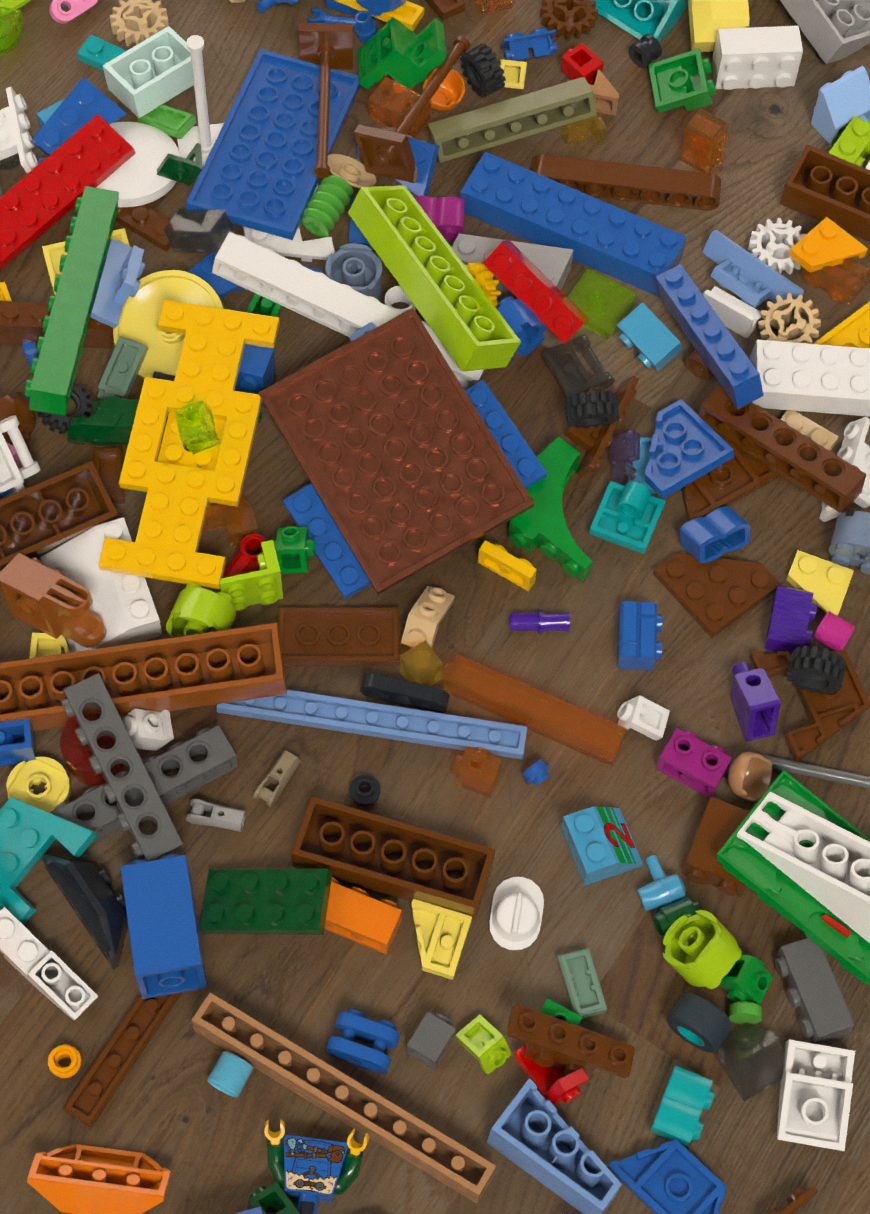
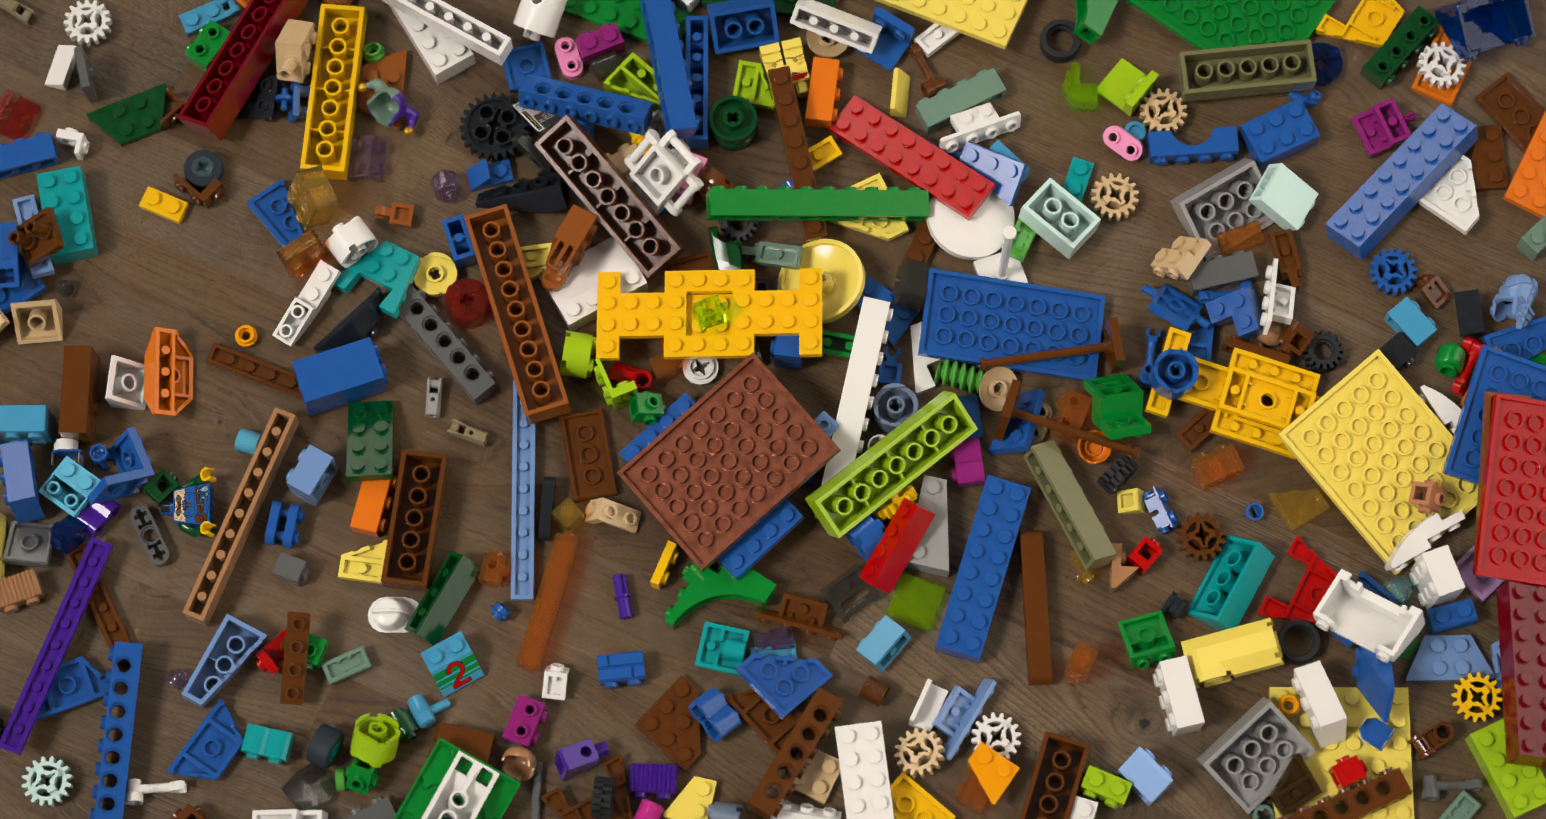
camera: 85 degrees right, 10 degrees up
(94, 694) = (489, 292): dark grey brick -> none
(117, 282) = (845, 232): medium blue bracket -> none
(148, 728) = (490, 343): white brick -> none
(182, 169) = (962, 260): dark green bracket -> none
(260, 477) = (711, 370): none -> white gear
(301, 986) = (311, 475): none -> medium blue brick
(365, 798) = (468, 501): black plate -> none
(484, 1044) = (296, 601): lime bracket -> none
(511, 837) = (442, 598): none -> dark green brick
(592, 409) = (795, 603): black tyre -> none
(709, 336) = (880, 684): blue brick -> none

